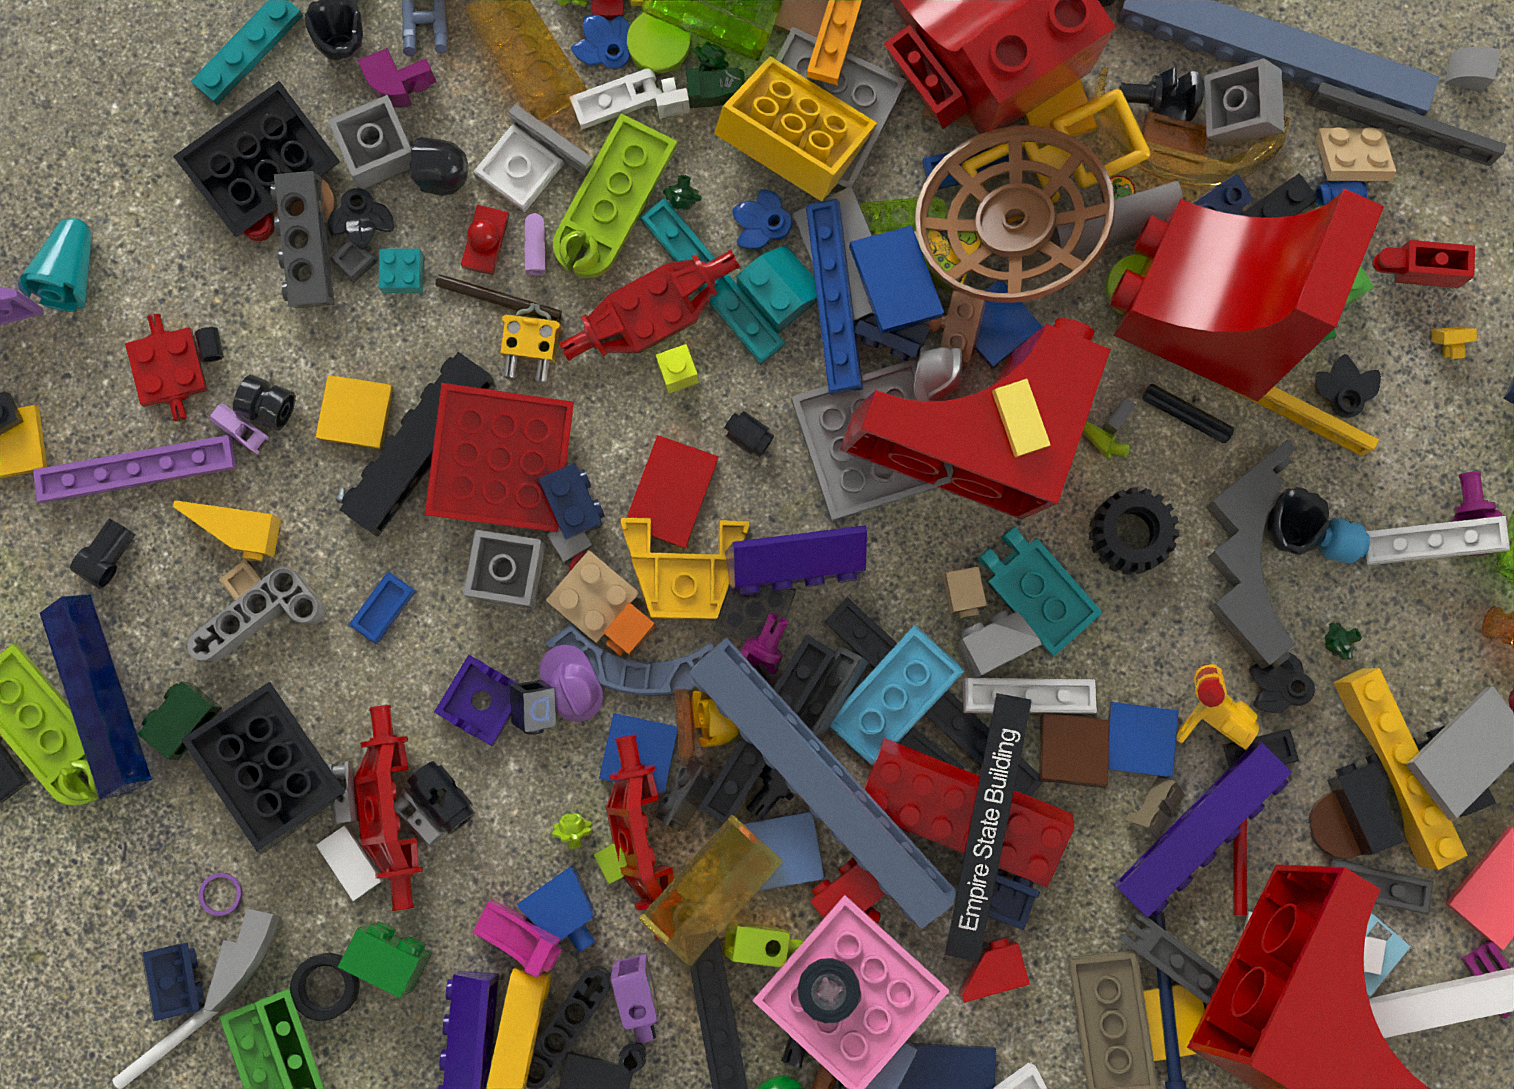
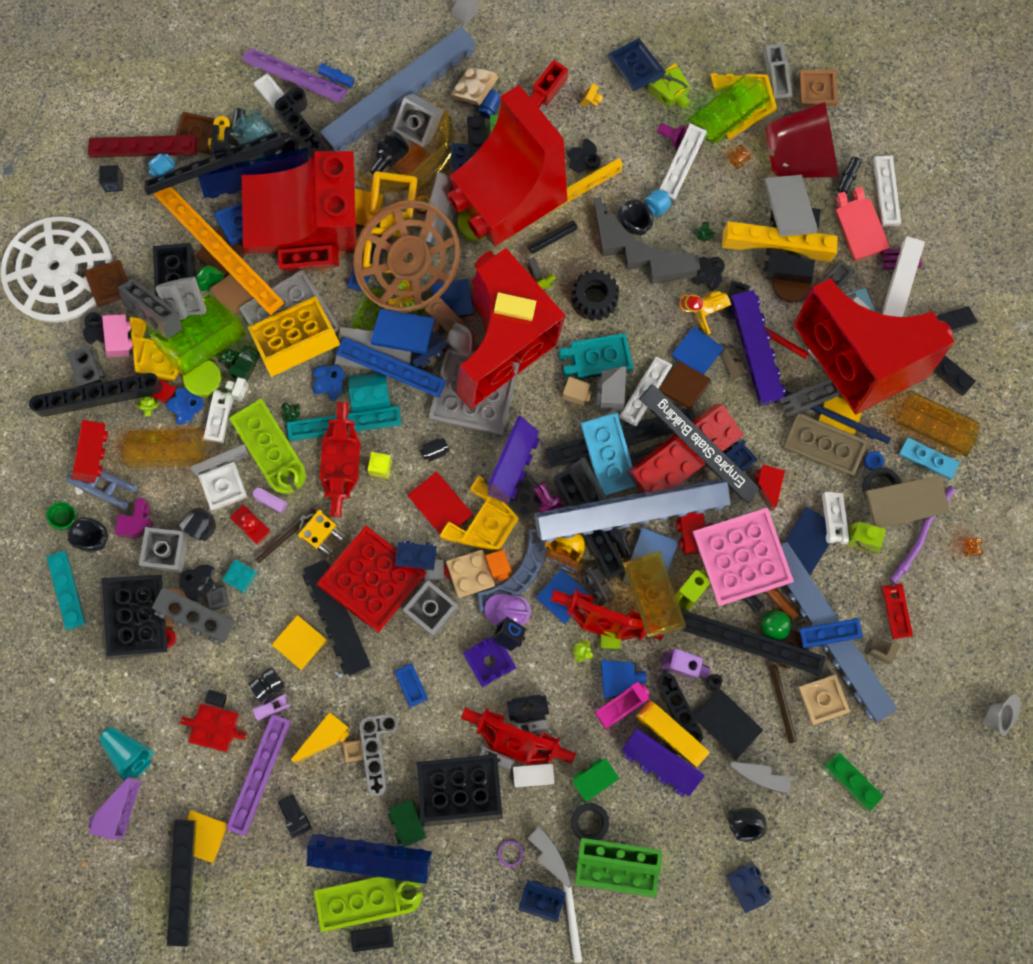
camera: 60 degrees left, 5 degrees down
(831, 1003) = (735, 564): black wheel -> none
(1406, 124) = (473, 54): dark grey tile -> none

